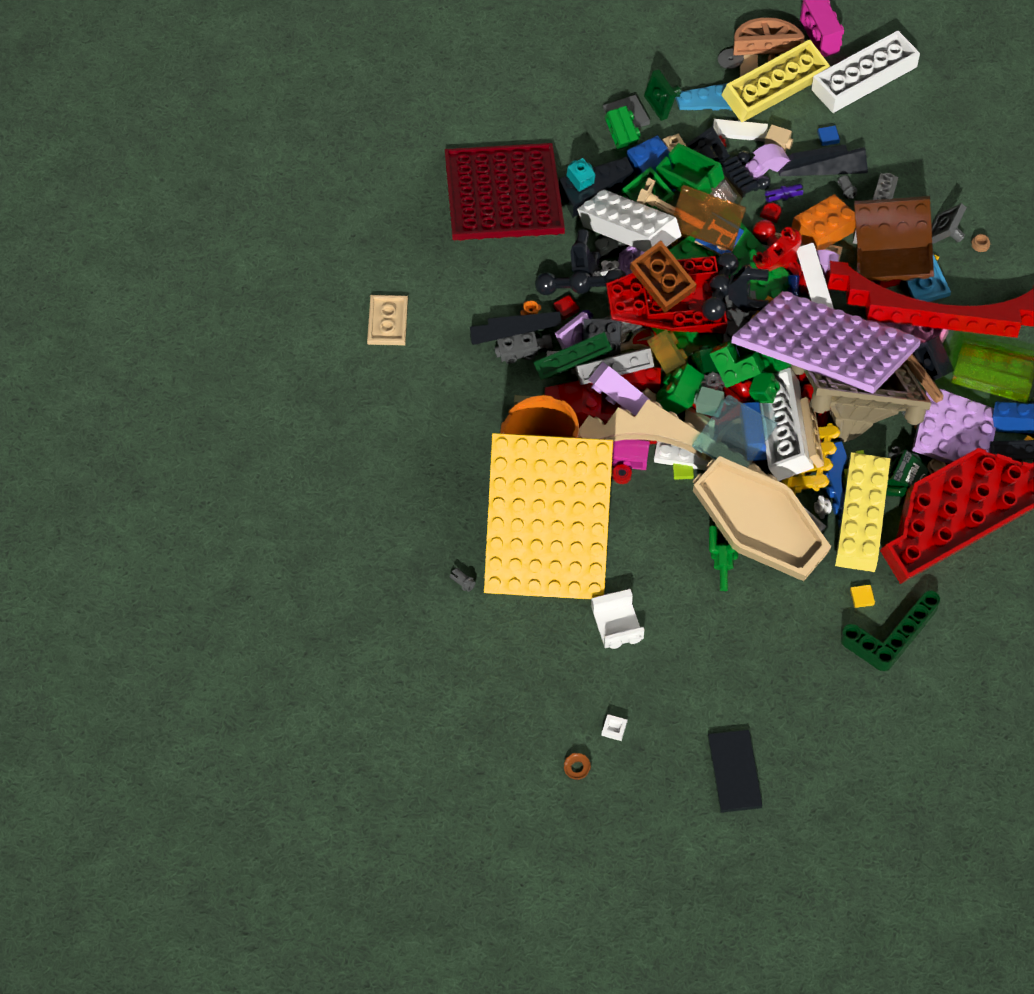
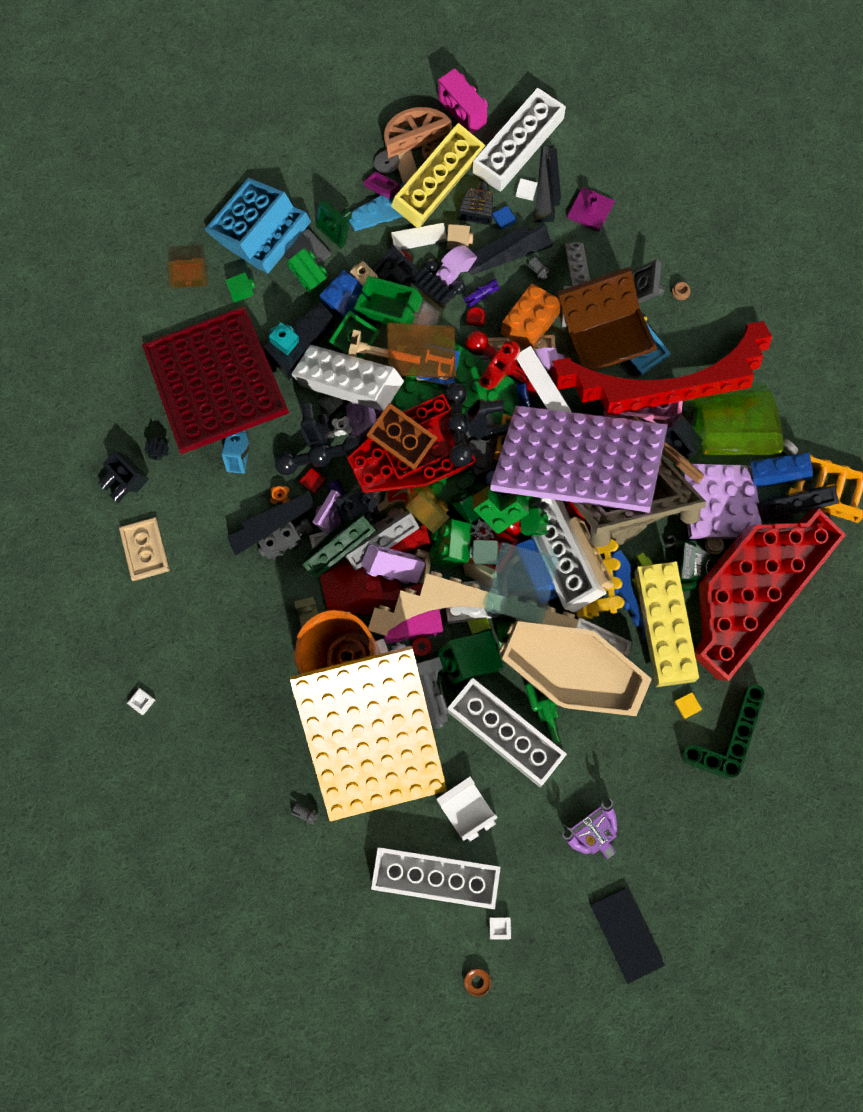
camera: 15 degrees left, 15 degrees up
(341, 444) = (141, 701): none -> white tile
(392, 248) = (124, 470): none -> black brick
(428, 238) = (156, 448): none -> black gear
(504, 252) = (236, 452): none -> dark azure torso
(508, 101) = (188, 273): none -> clear orange brick
(554, 126) = (240, 287): none -> green brick
(568, 665) = (436, 878): none -> white brick
(589, 78) = (258, 224): none -> dark azure slope
(620, 490) = (434, 700): none -> dark grey piece
(663, 493) = (469, 658): none -> dark green slope
(678, 564) = (506, 732): none -> white brick
(718, 75) = (382, 185): none -> magenta tile
(732, 672) = (594, 831): none -> torso
(805, 117) = (477, 205): none -> torso
(822, 507) = (622, 623): white plate -> none
(859, 117) = (526, 189): none -> white tile
(881, 120) = (548, 185): none -> black wedge
(916, 150) = (591, 209): none -> magenta tile
(952, 350) = (690, 414): none -> black tile

